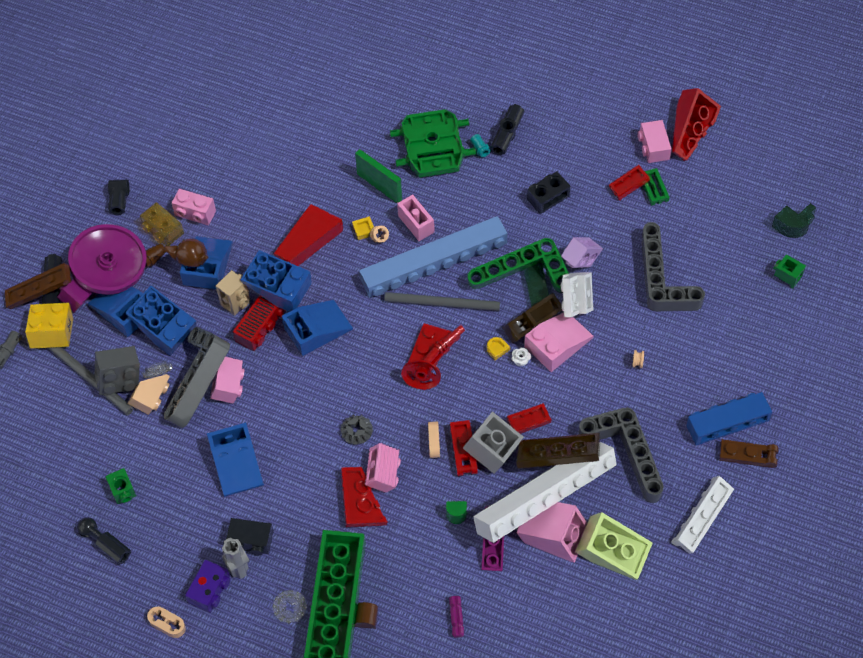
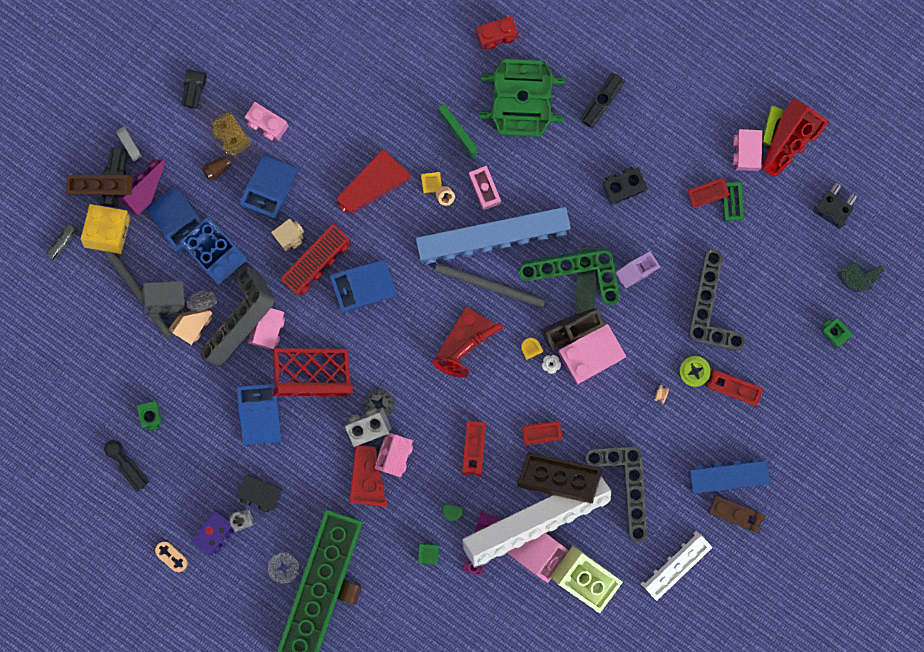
camera: 10 degrees right, 25 degrees up
(59, 249) = (129, 143): none -> light grey beam
(107, 259) = (170, 171): magenta dish -> none
(188, 252) = (252, 186): reddish brown piece -> none
(277, 280) = (331, 237): blue slope -> none
(282, 421) = (315, 389): none -> red fence
(353, 451) = (370, 430): none -> light grey brick
(395, 96) = (496, 33): none -> red brick
(434, 446) = (448, 434): light nougat beam -> none
(441, 556) = (428, 553): none -> green panel
(456, 616) = (429, 611): magenta axle -> none
(482, 149) = (570, 113): teal pin -> none
(493, 442) = (501, 455): light grey brick -> none
(577, 293) = (620, 315): white brick -> none
(664, 326) = (697, 362): none -> lime gear
(669, 118) = (771, 125): none -> lime slope
(708, 339) = (735, 388): none -> red plate
(750, 171) = (832, 210): none -> black piece

